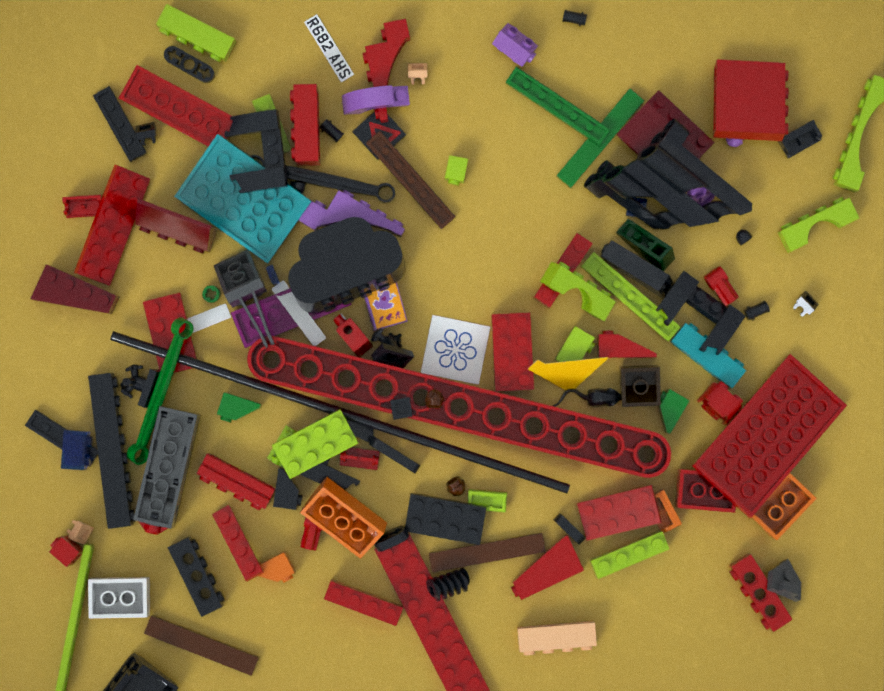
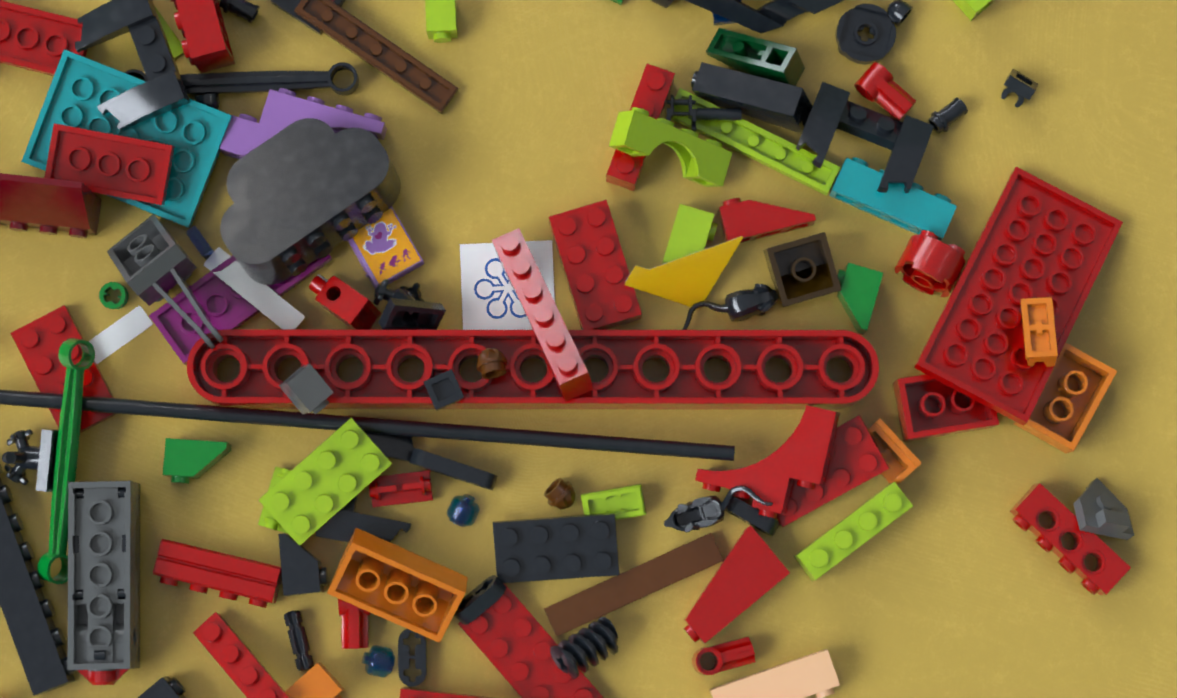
camera: 10 degrees left, 5 degrees down
(228, 213) = (110, 163): none -> red plate
(275, 548) = (298, 640): none -> black axle
(318, 388) = (307, 390): none -> dark grey brick
(320, 559) = (379, 661): none -> piece
(346, 564) = (404, 658): none -> black beam
(394, 480) = (463, 510): none -> piece
(472, 375) = (543, 315): none -> arch
(533, 610) = (726, 656): none -> red piece
(542, 519) = (705, 511): none -> black animal
(586, 512) = (801, 457): none -> red arch
(602, 272) = (701, 113): none -> black piece
(728, 241) = (879, 25): none -> black plate
(773, 463) = (1039, 331): none -> orange hinge

